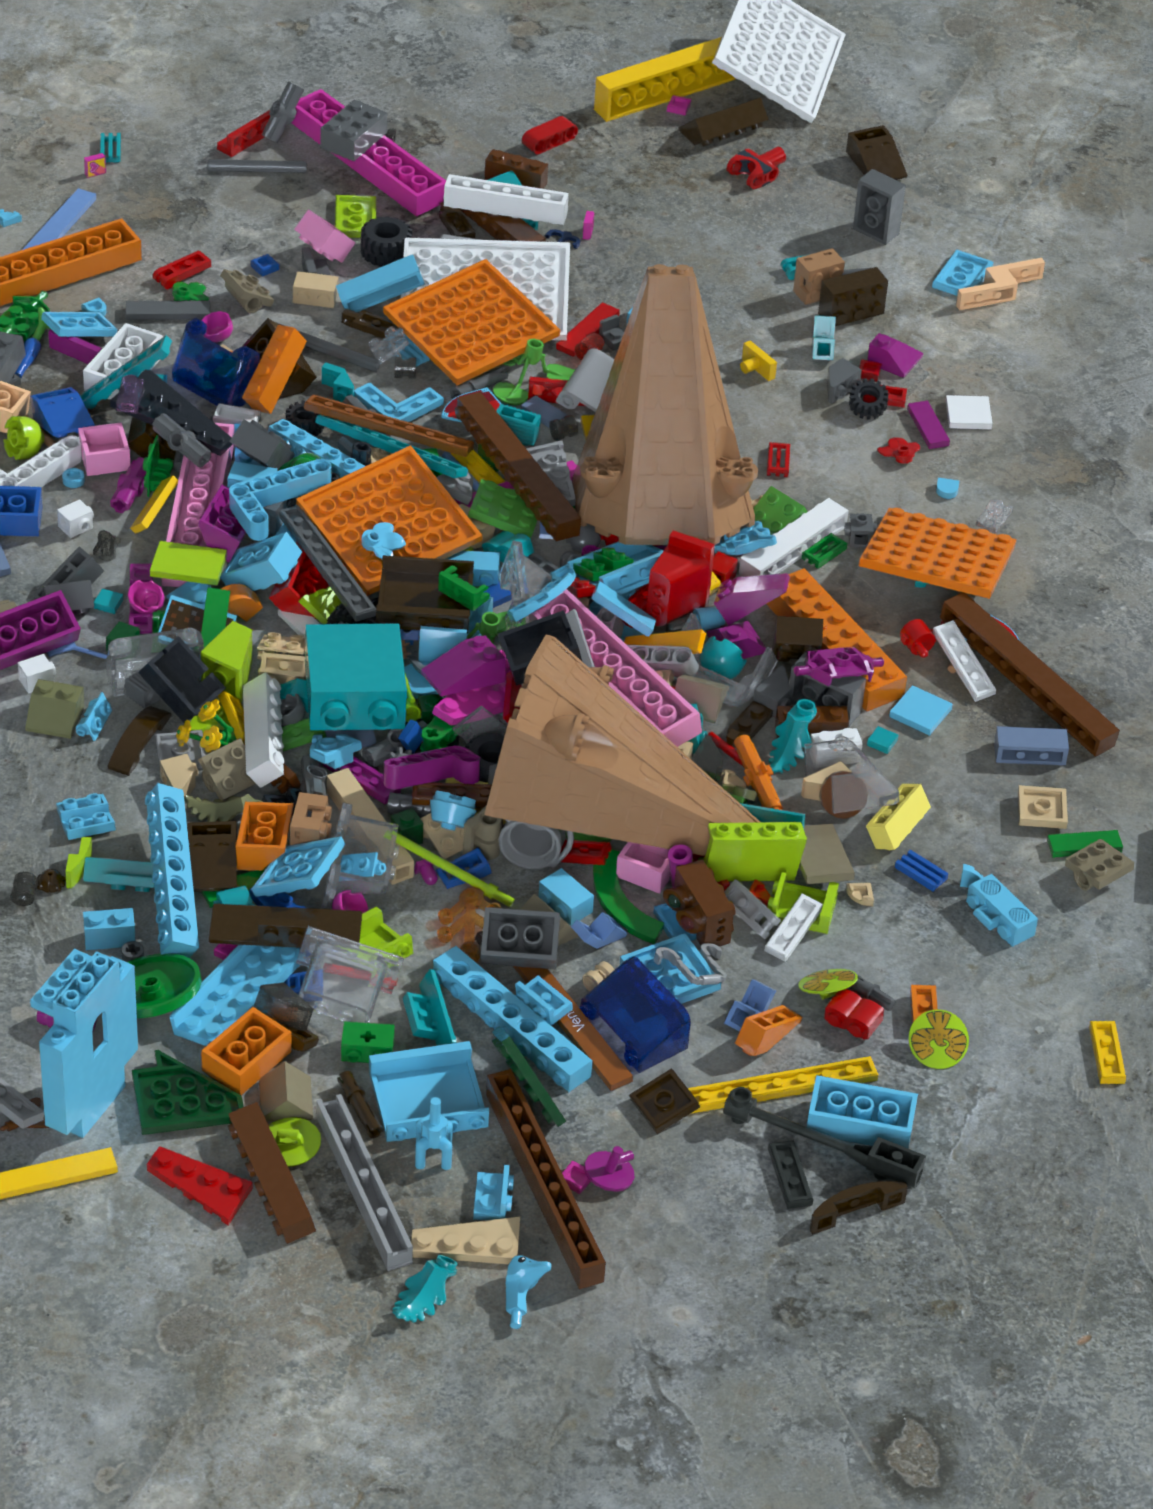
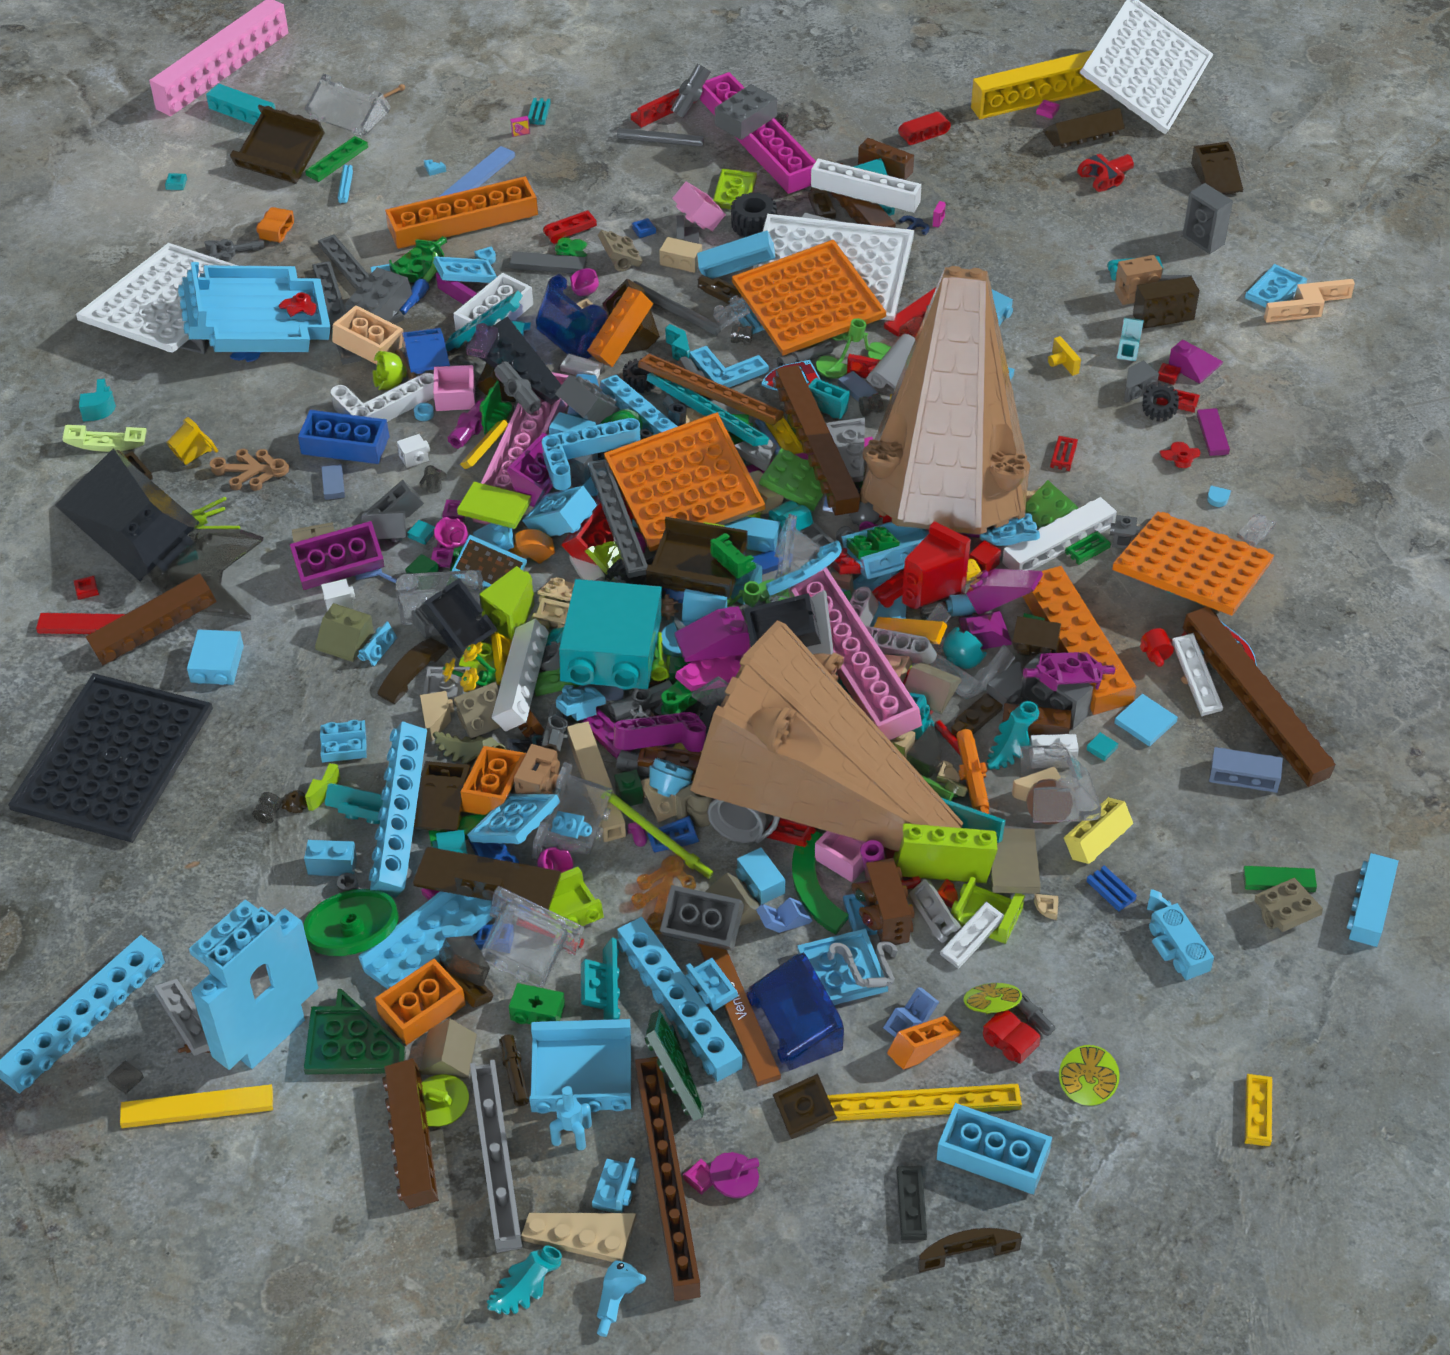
camera: 15 degrees right, 5 degrees up
(210, 1186) = (347, 1134): red wing -> none
(214, 614) = (505, 556): green tile -> none
(382, 540) = (674, 500): medium azure plate -> none
(411, 736) = (652, 696): blue tile -> none
(594, 977) = (768, 964): tan wheel -> none
(623, 609) = (877, 591): medium azure tile -> none
(882, 1158) = (1003, 1200): pearl dark grey bar -> none
(922, 999) = (1083, 1030): orange plate -> none
(968, 412) = (1254, 423): white tile -> none
(1042, 807) = (1244, 835): tan plate -> none

